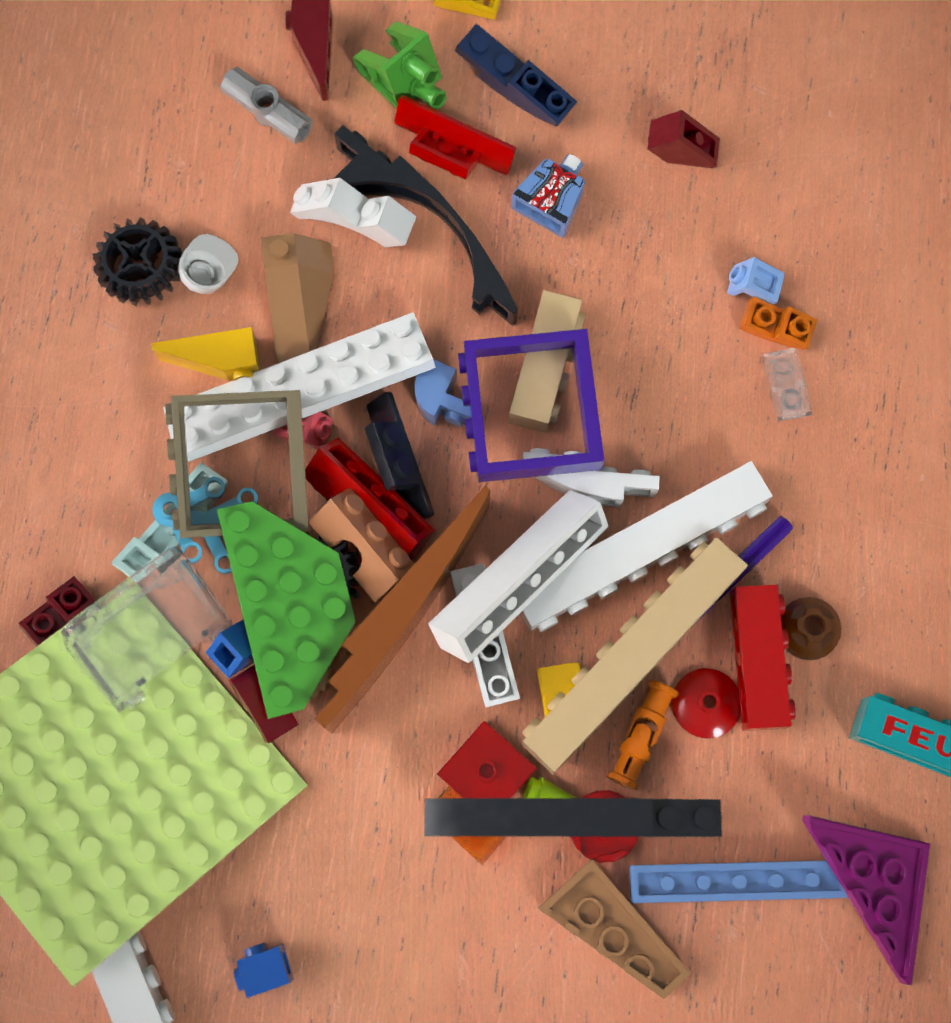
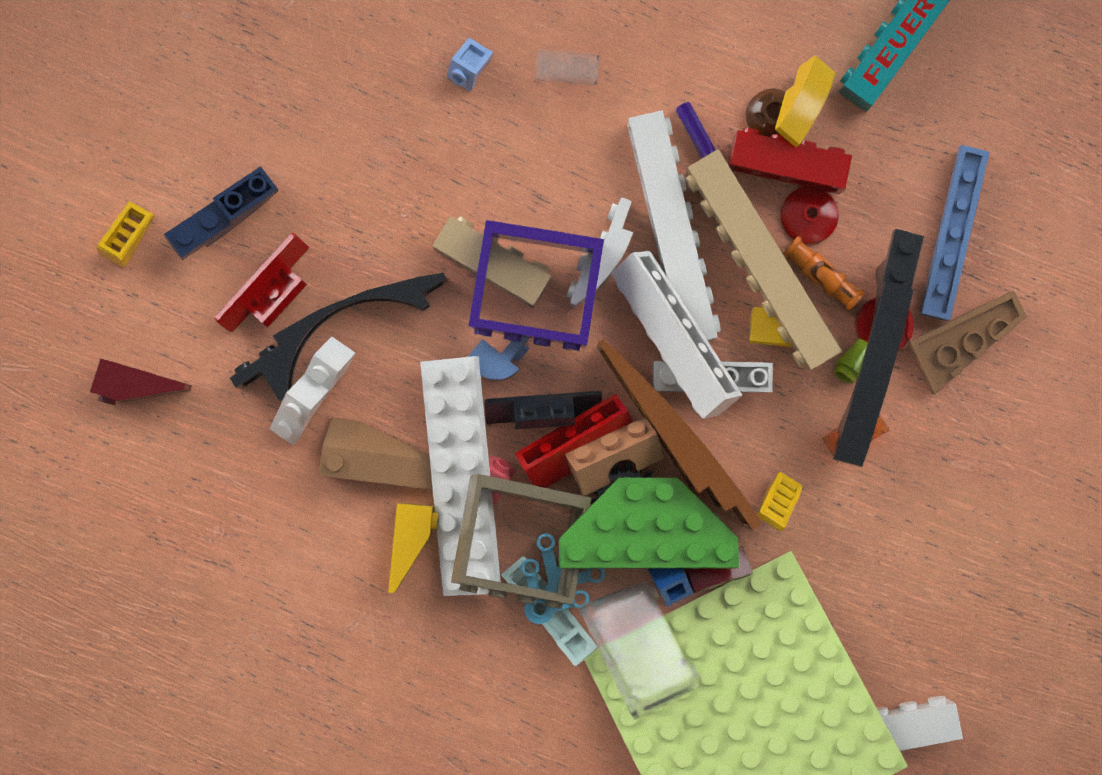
camera: 80 degrees left, 10 degrees up
(59, 609) = (598, 722): dark red slope -> none
(125, 282) = (297, 577): black gear -> none
(207, 264) = (324, 527): white cap -> none
(253, 94) = (171, 451): light grey piece -> none
(262, 969) = (925, 619): blue brick -> none
(360, 750) = (781, 498): none -> yellow slope
(408, 72) = (196, 305): bright green piece -> none
(486, 766) = (816, 404): red plate -> none
(551, 194) = (341, 212): torso -> none
(683, 141) = (324, 85): dark red slope -> none
(778, 325) = (510, 57): orange slope -> none
(837, 653) = (804, 100): none -> yellow slope
(883, 881) = (984, 123): magenta tile -> none

